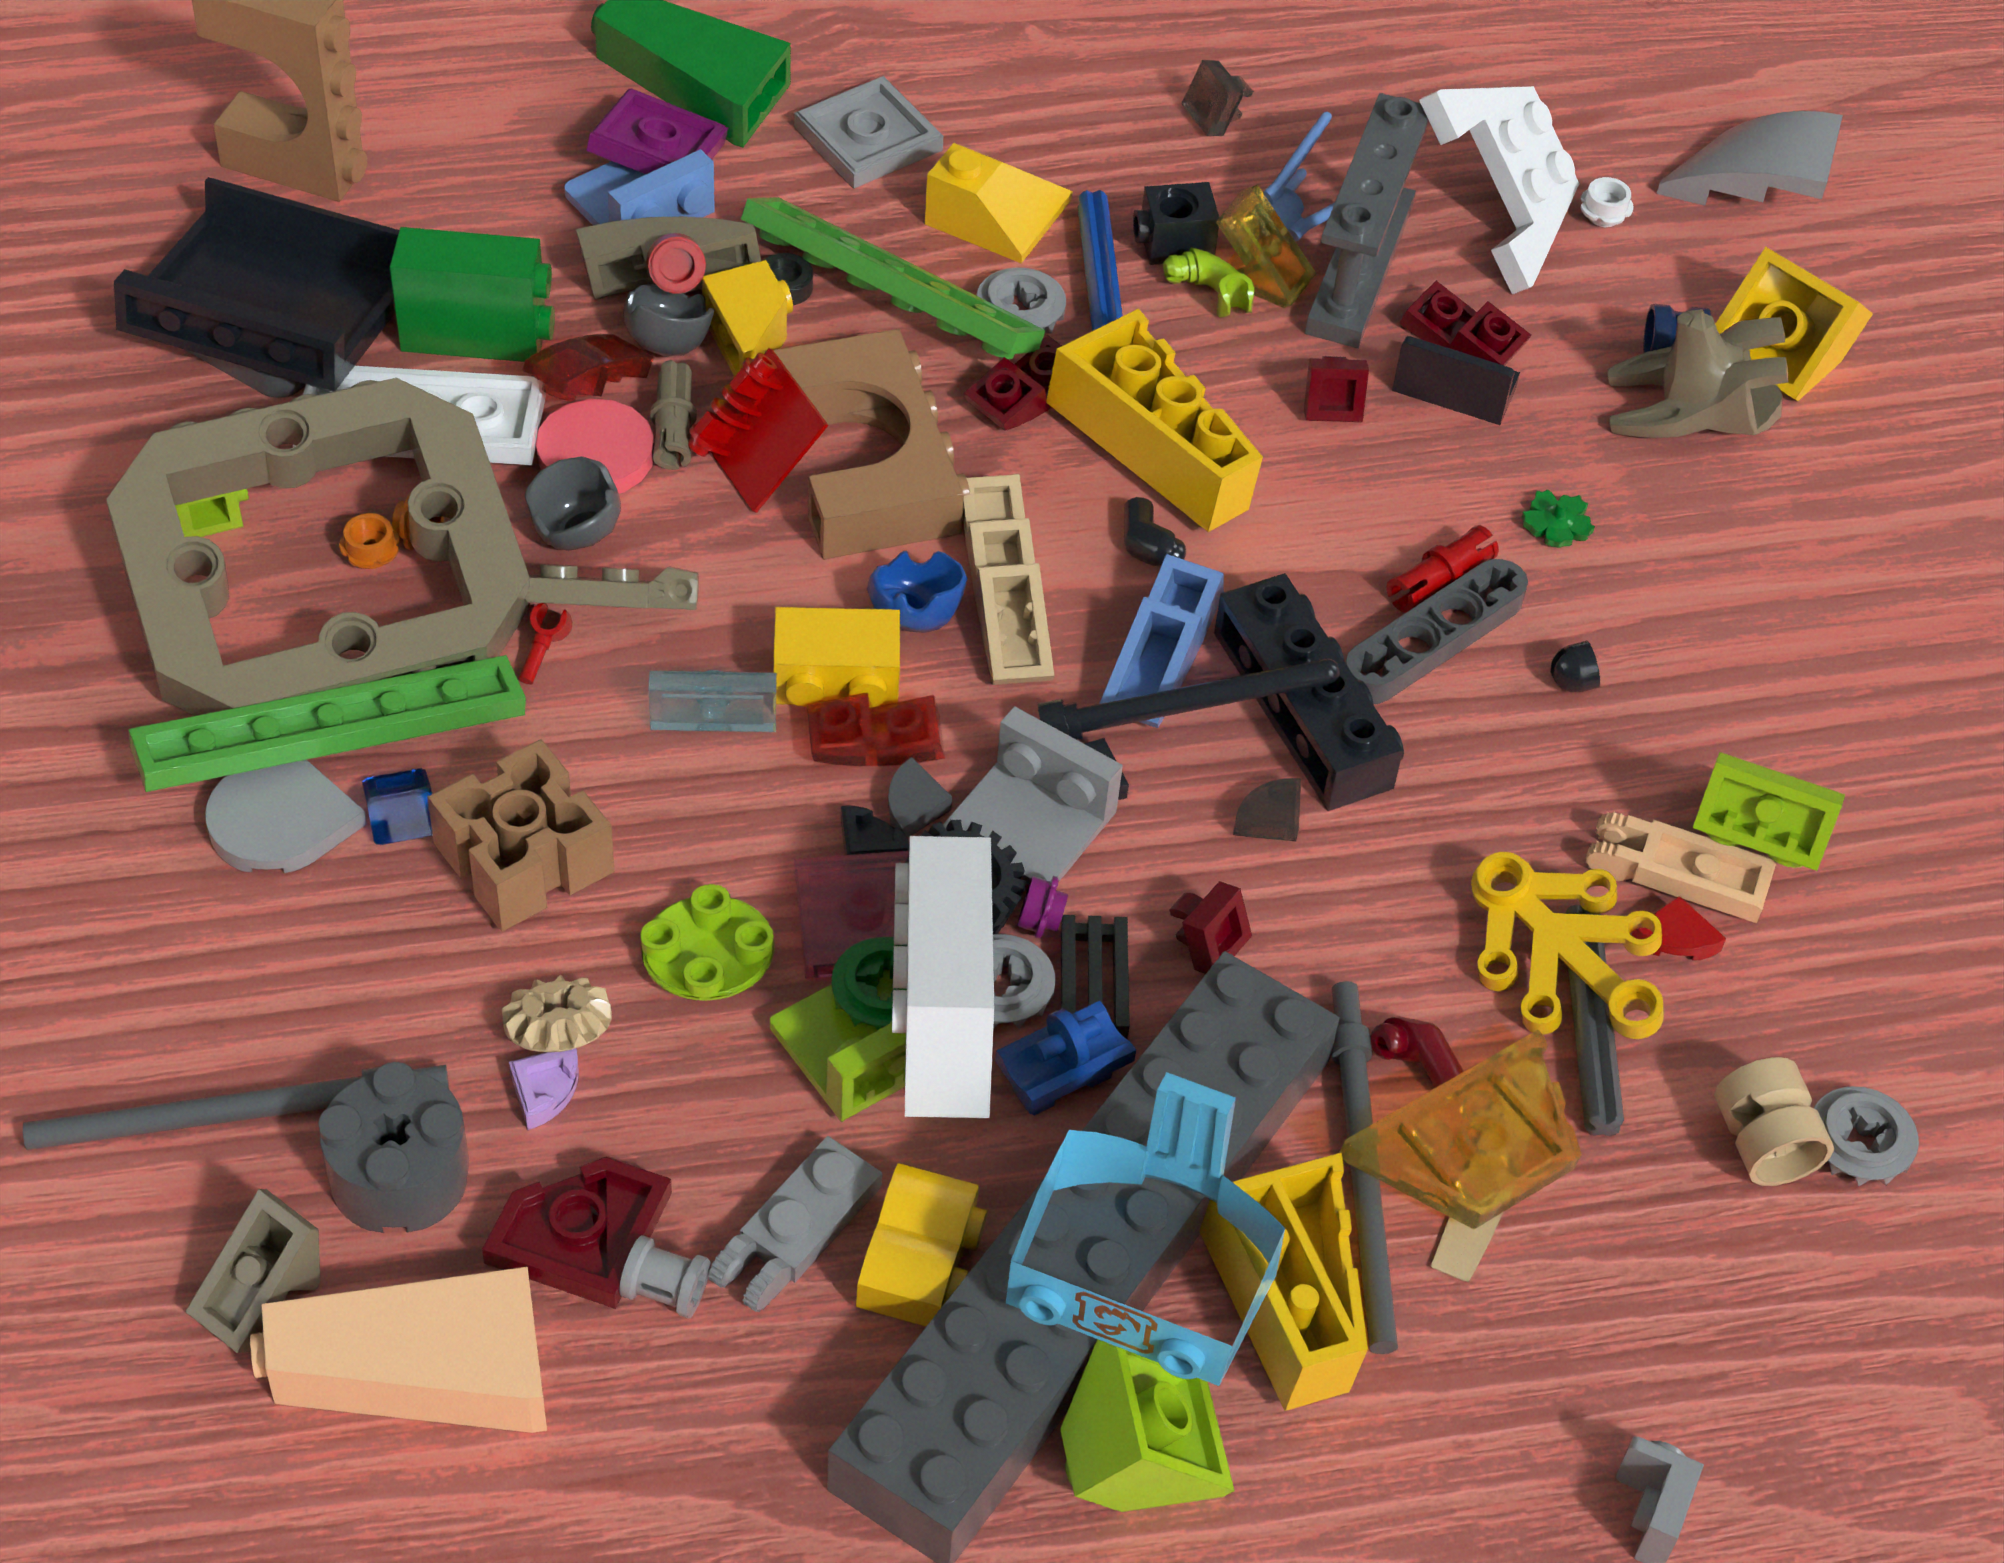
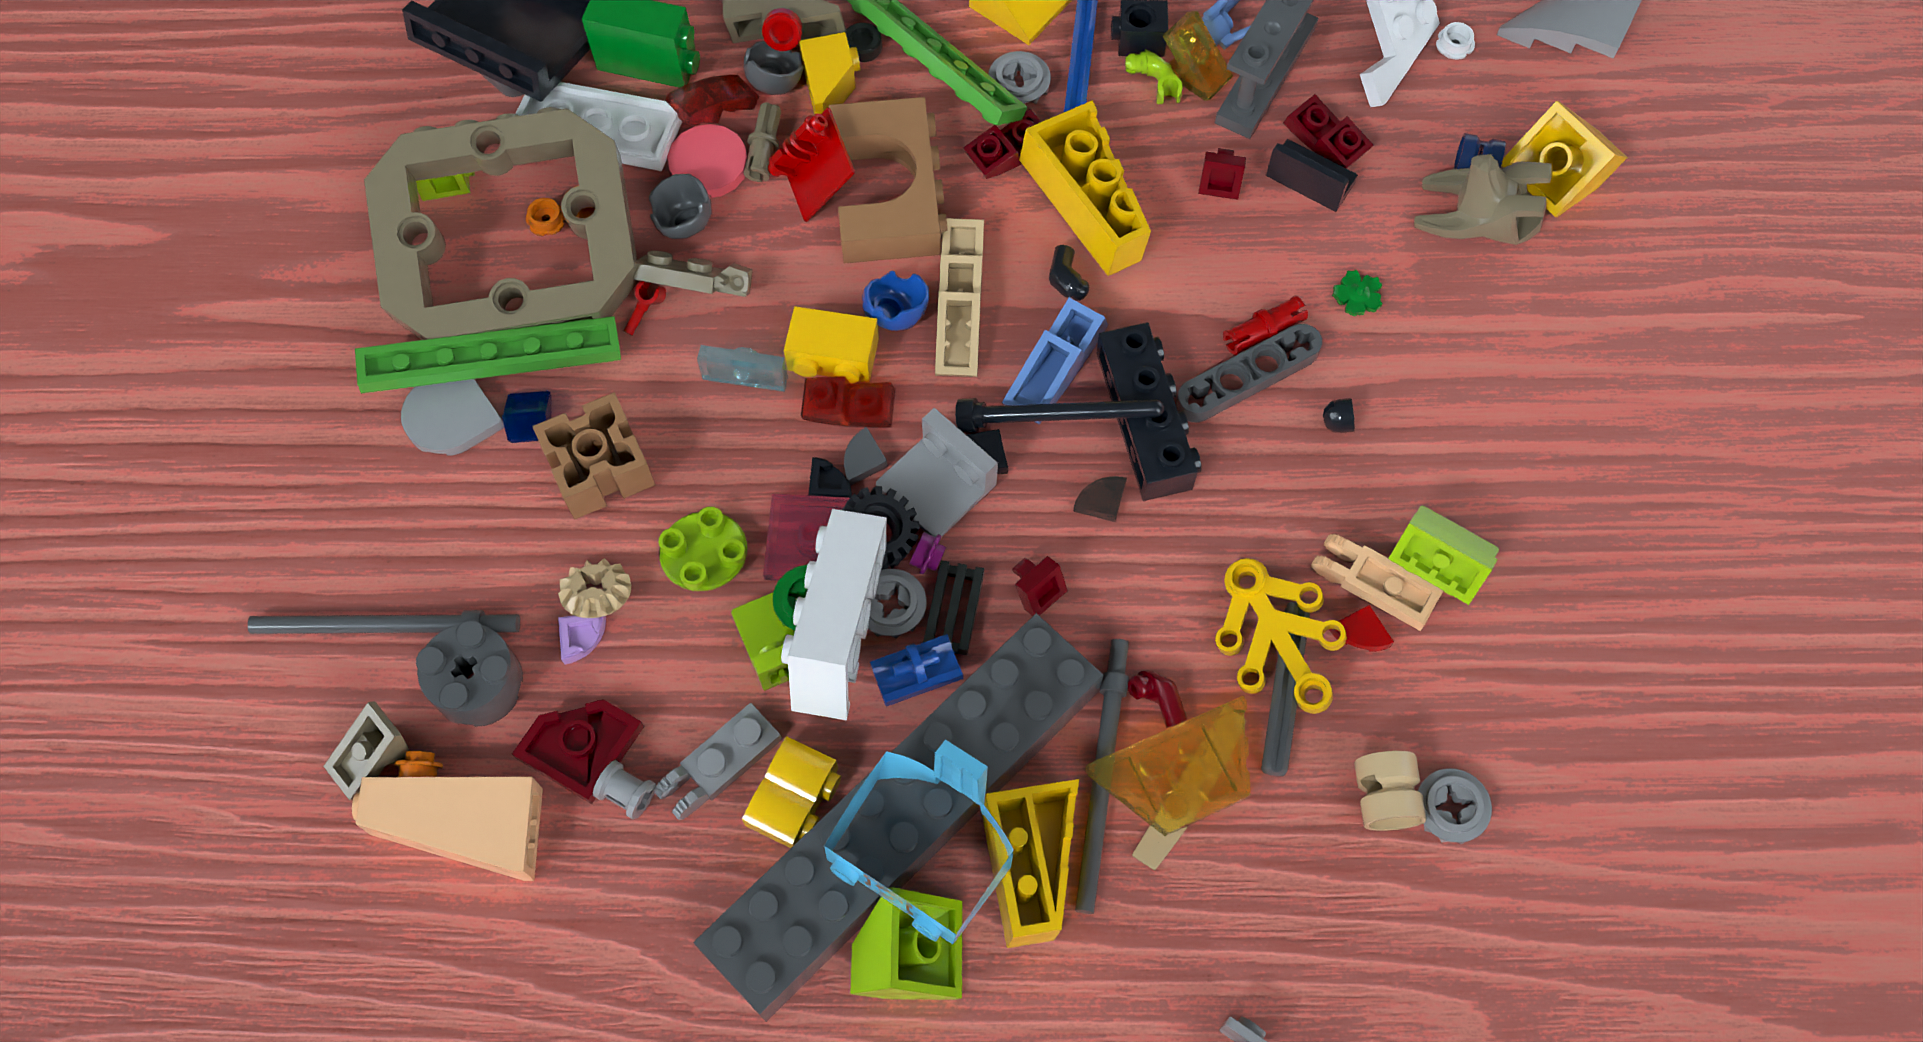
camera: 15 degrees right, 15 degrees up
(337, 1278) = (418, 765): none -> orange plate

